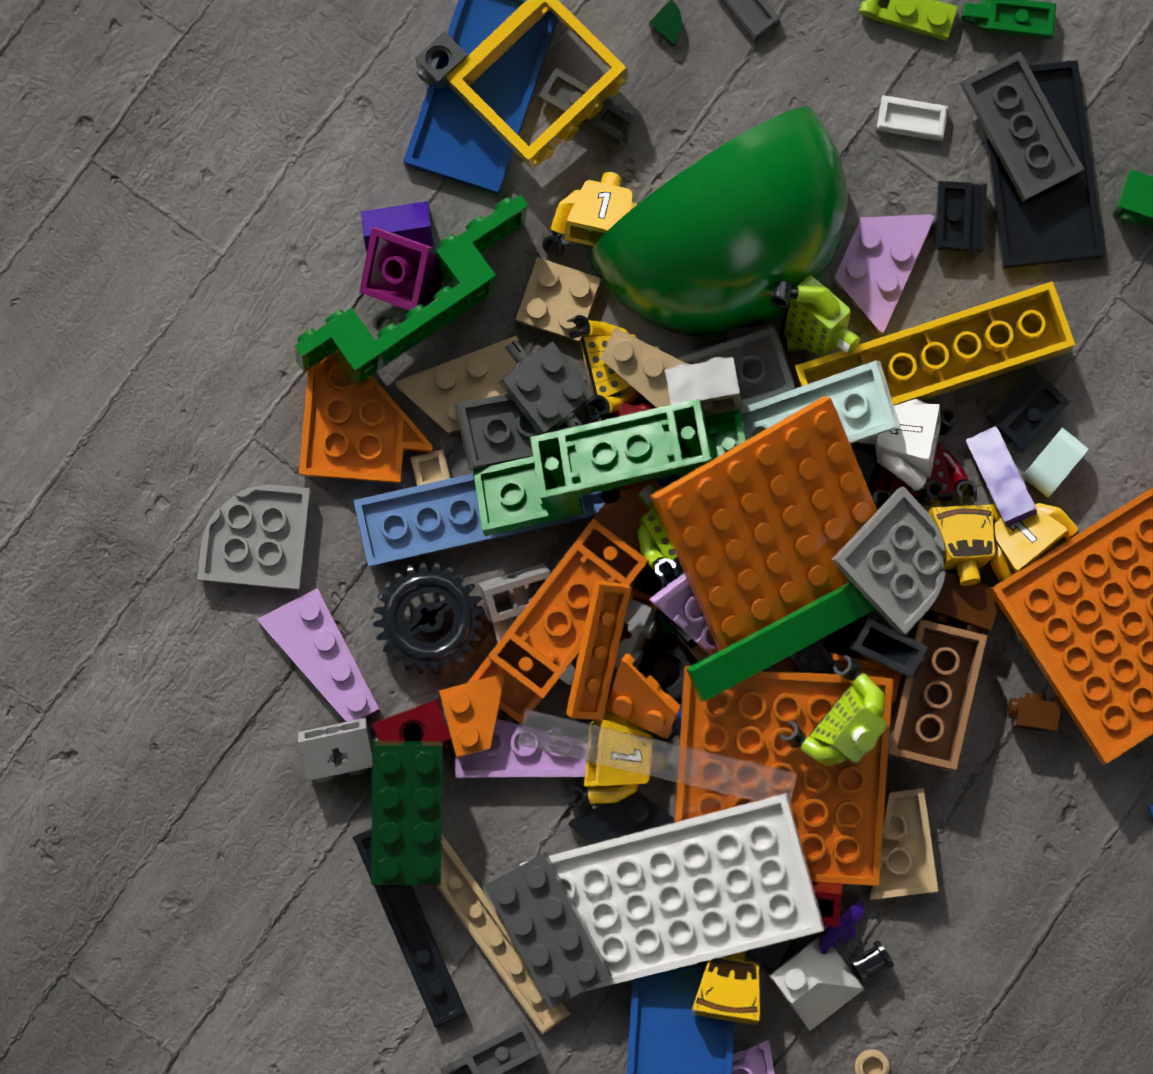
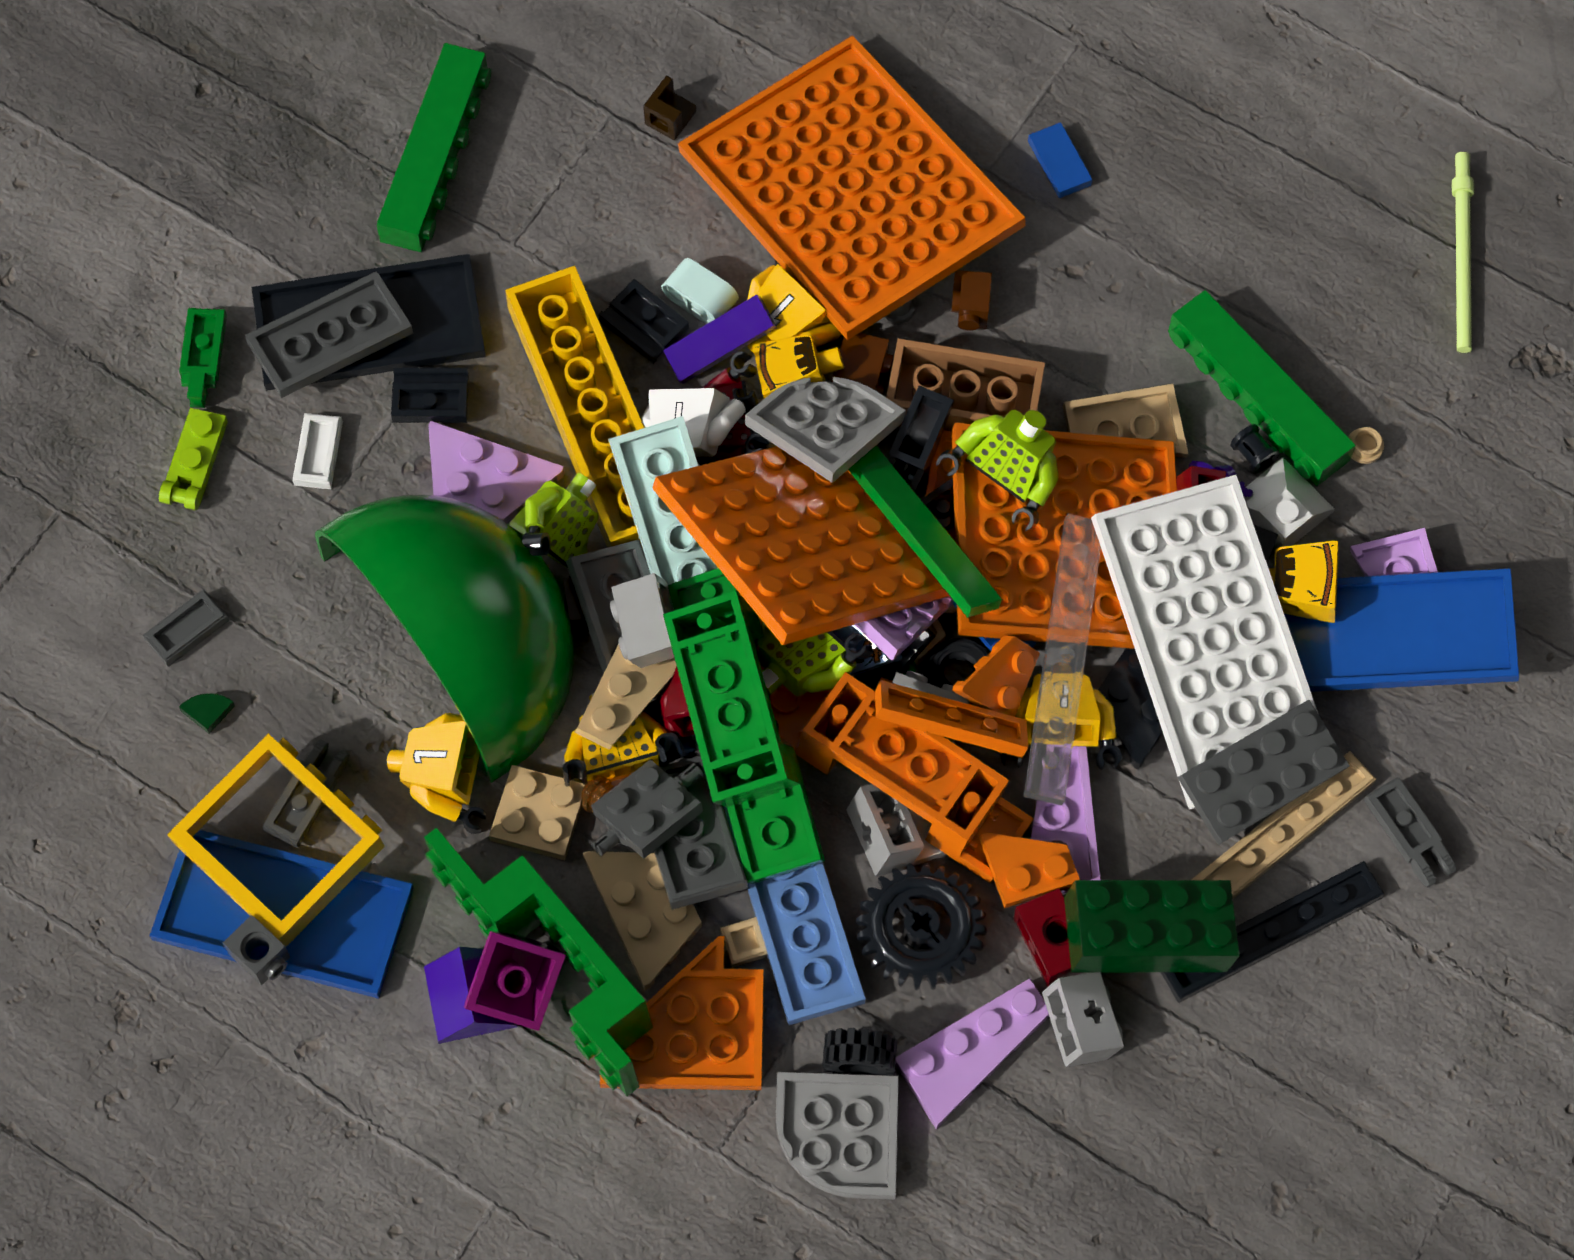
camera: 95 degrees left, 15 degrees down
(317, 556) = (859, 1052): none -> black tyre
(569, 348) = (594, 791): none -> clear orange plate
(933, 973) = (1260, 388): none -> green brick

